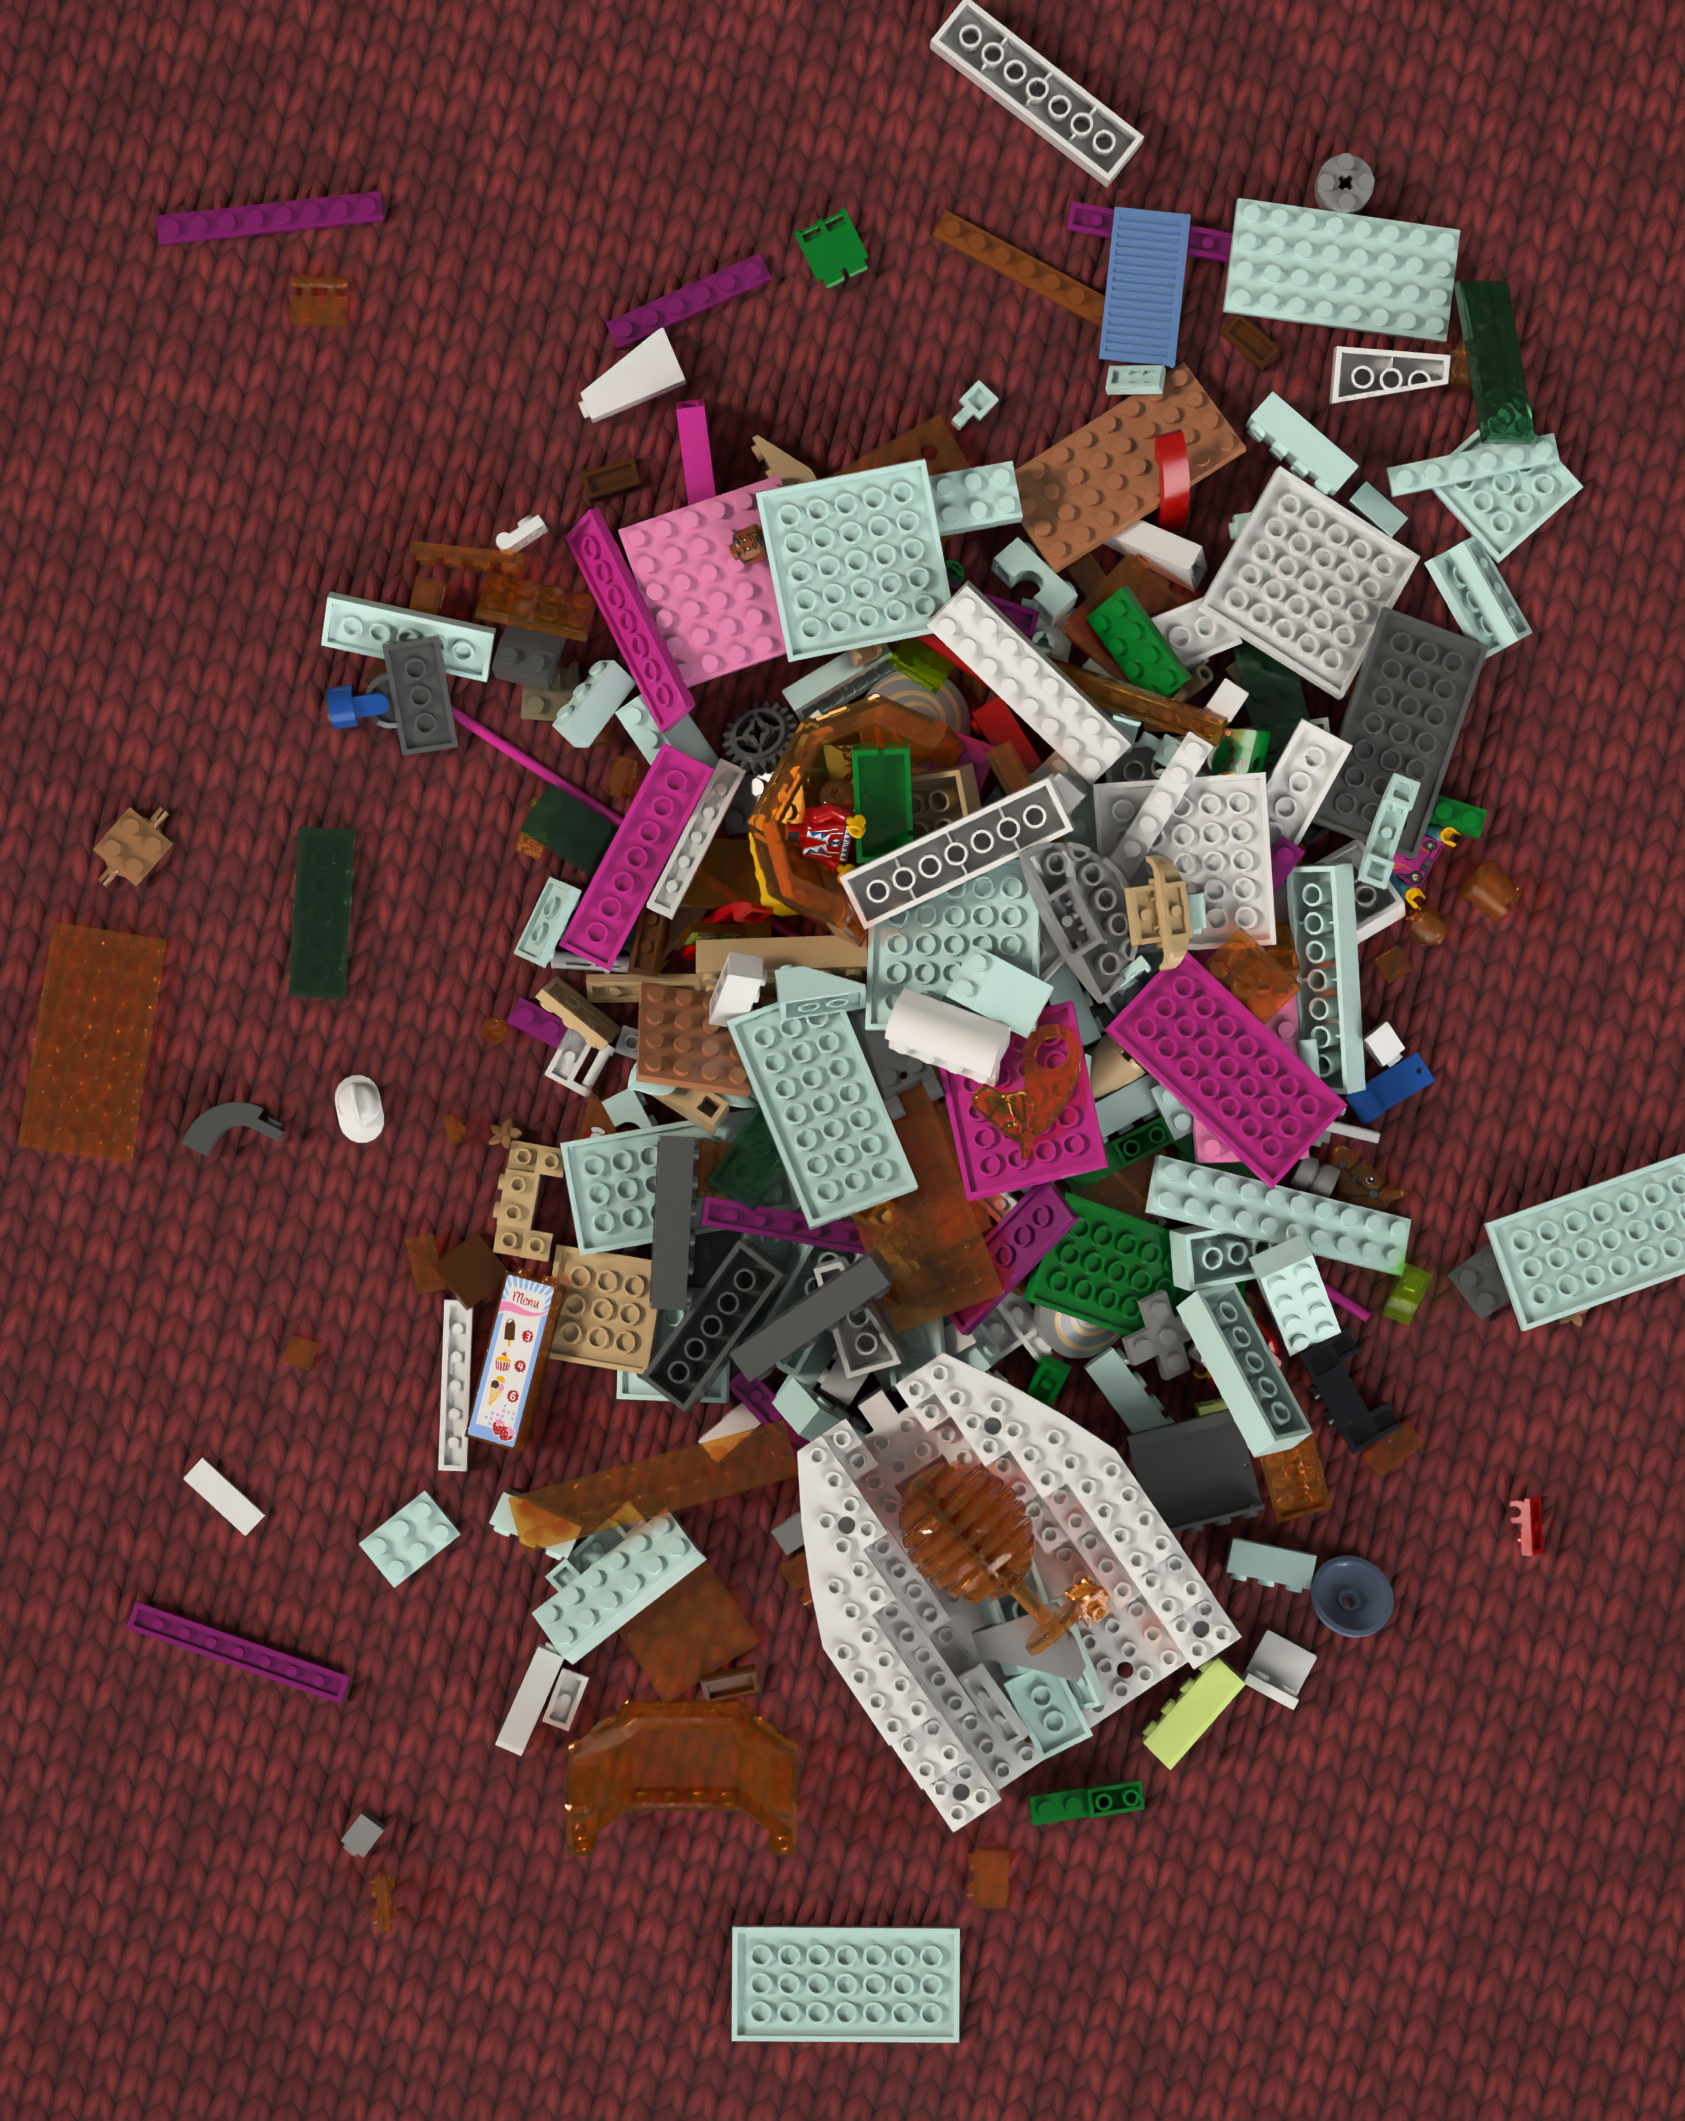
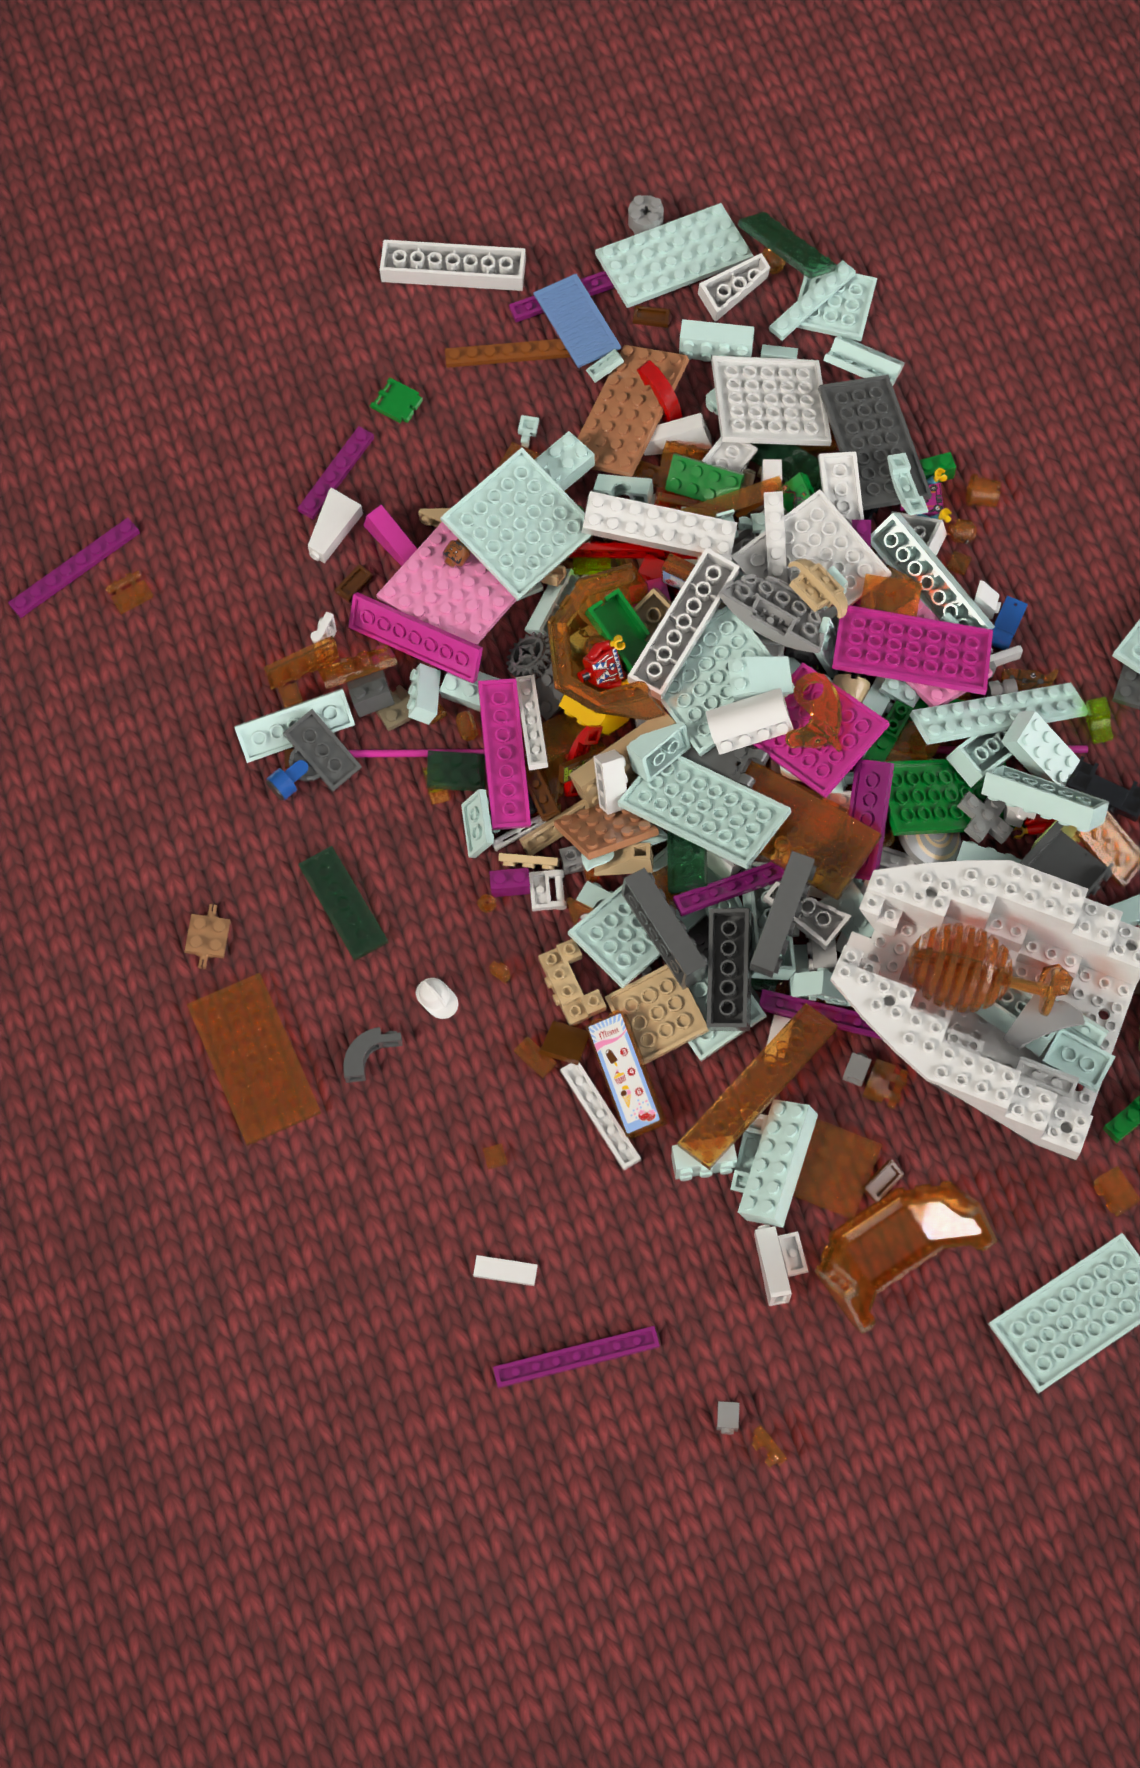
camera: 30 degrees left, 20 degrees down
(410, 1538) = (634, 1222): light aqua plate -> none
(504, 1134) = (532, 955): medium nougat plant -> none

